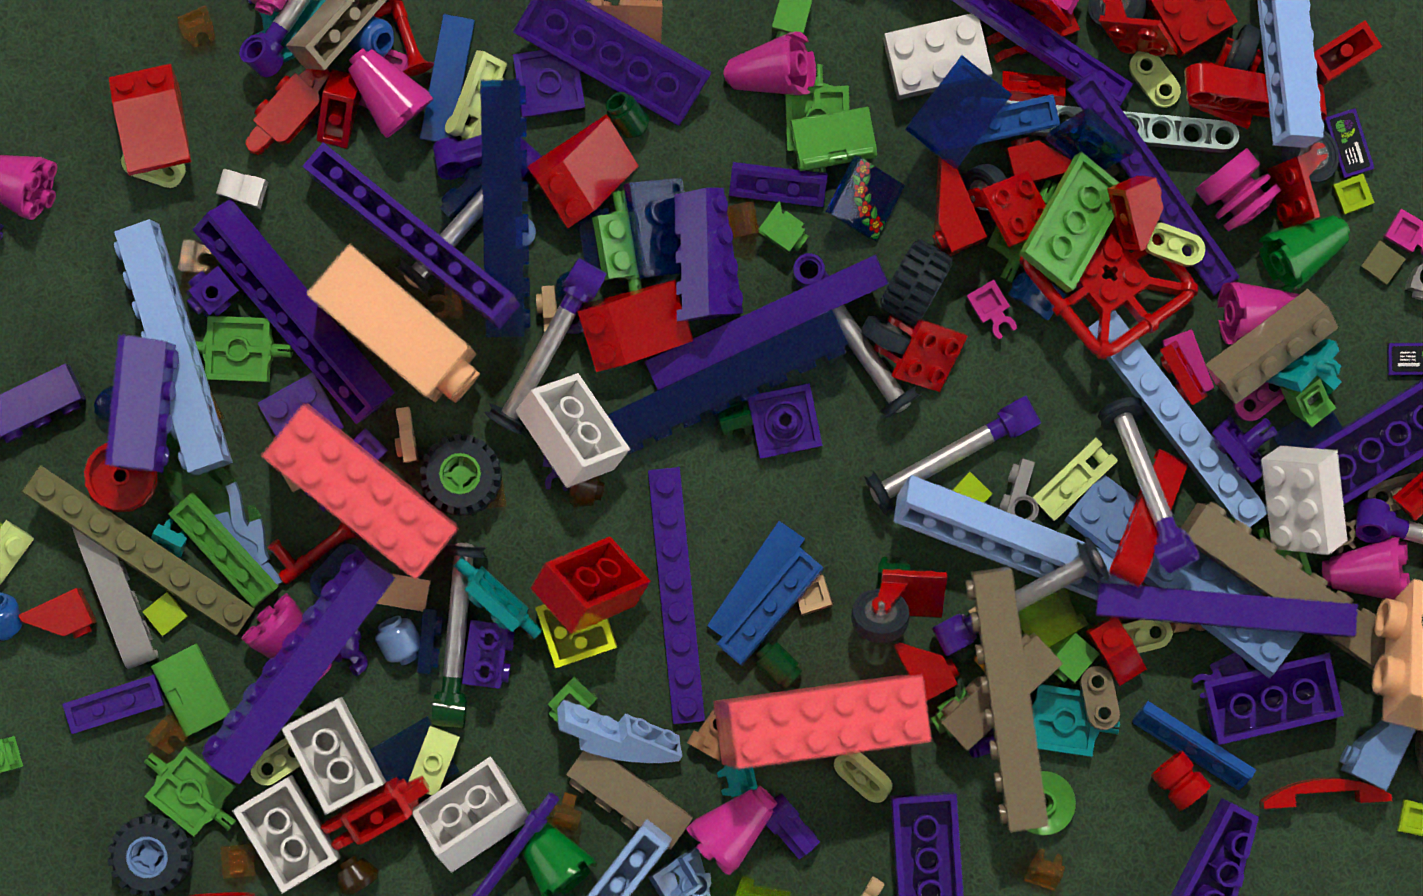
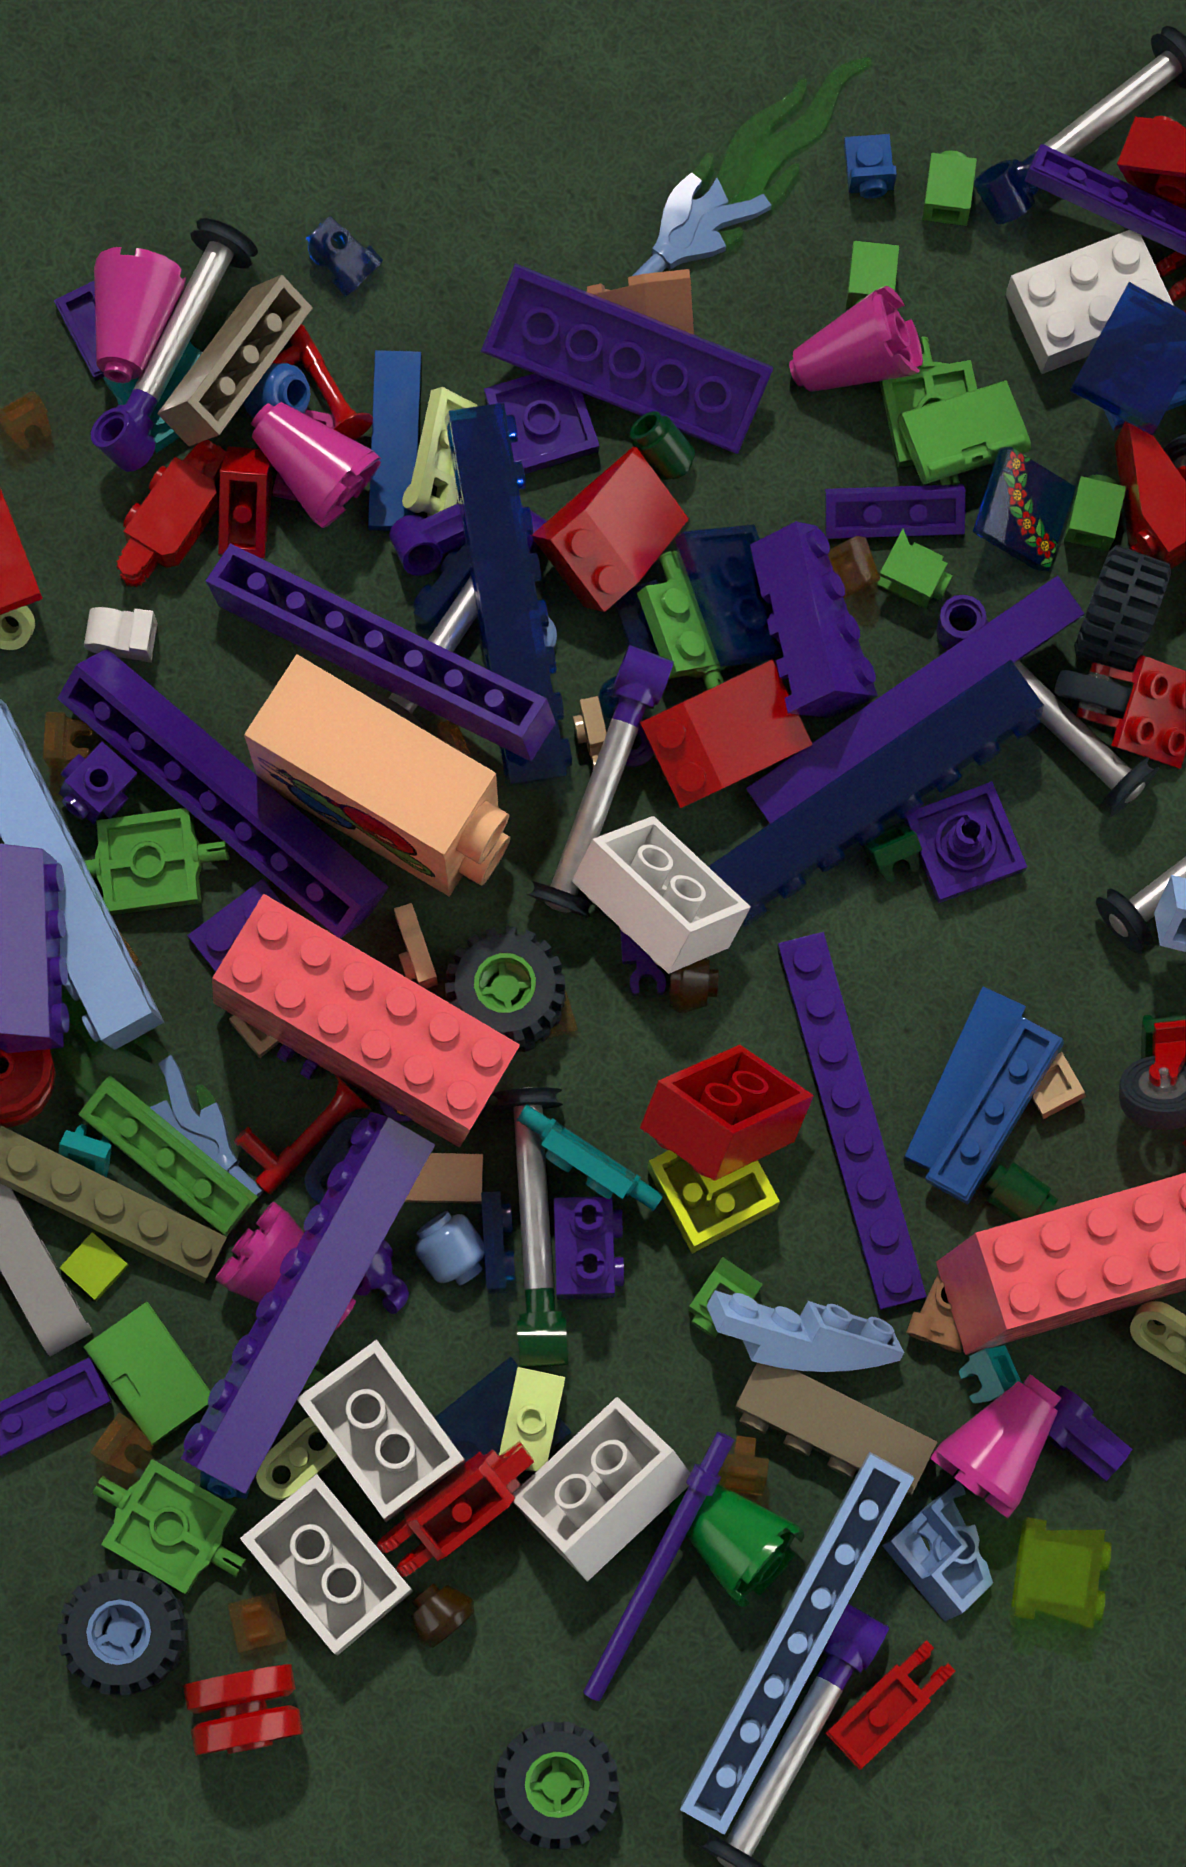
camera: 10 degrees left, 10 degrees down
(914, 206) = (1095, 512): none -> bright green brick

